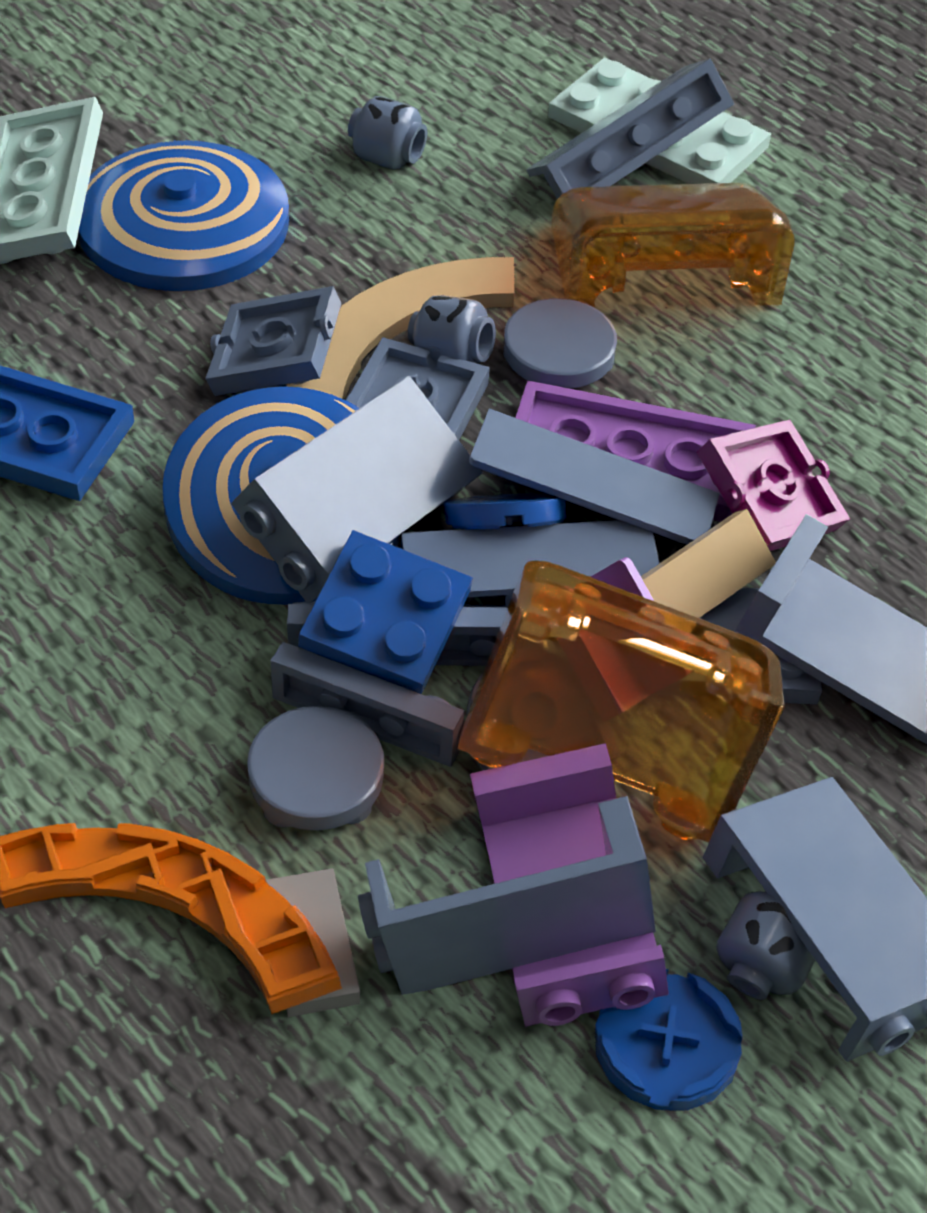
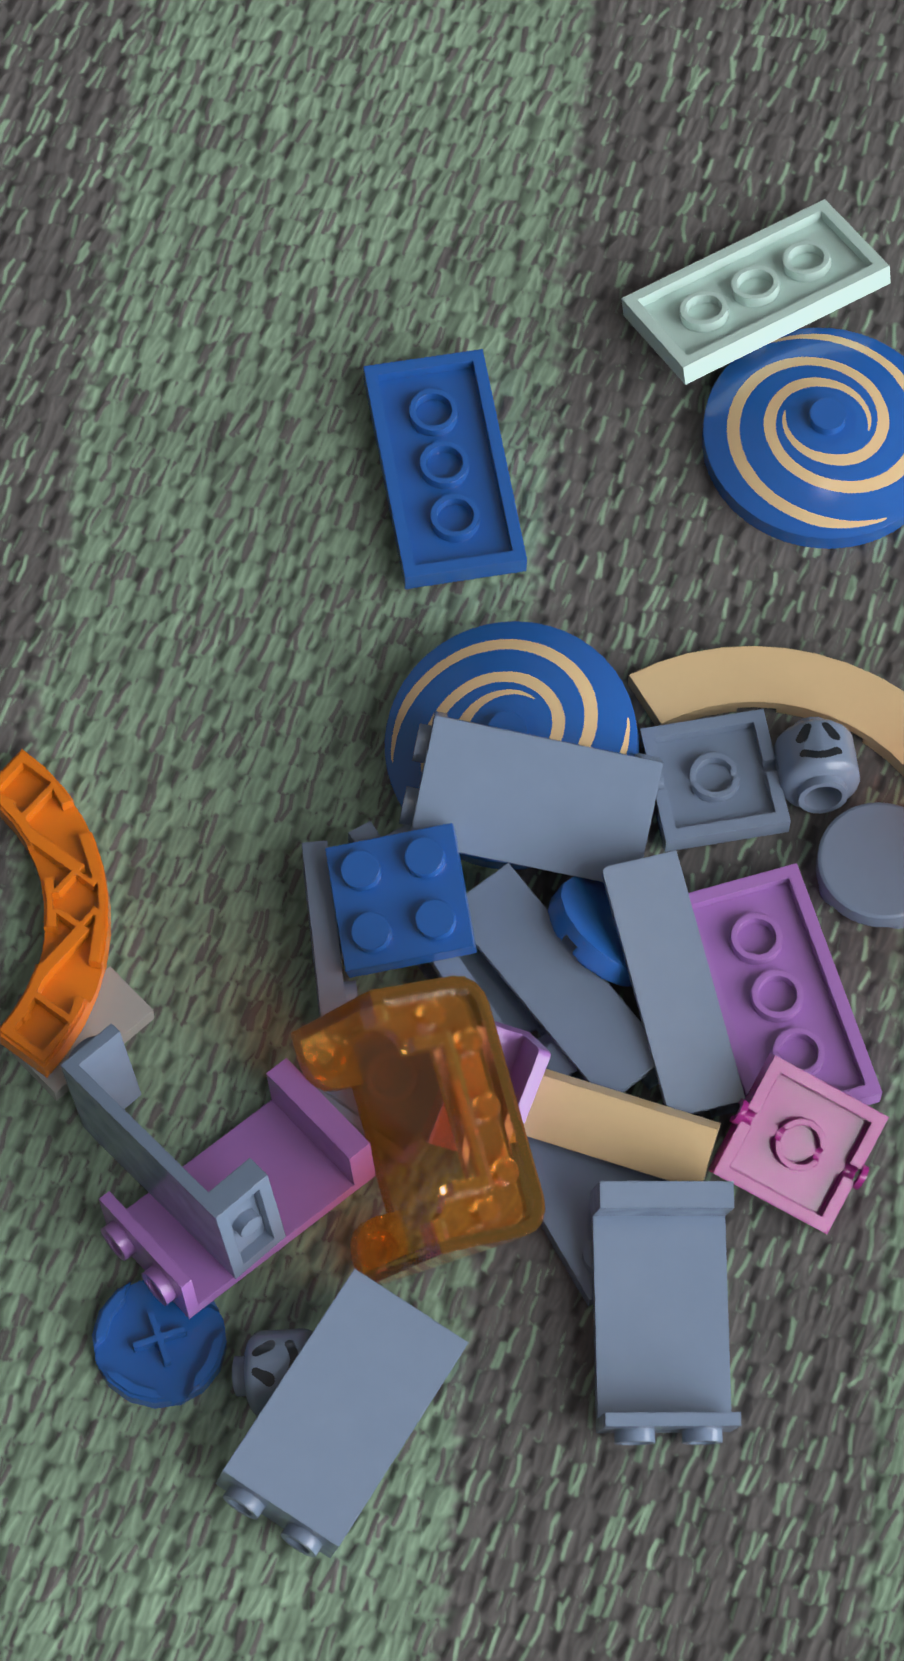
camera: 60 degrees right, 15 degrees up
(273, 341) = (688, 623): sand blue plate -> none
(315, 768) = (241, 941): sand blue tile -> none

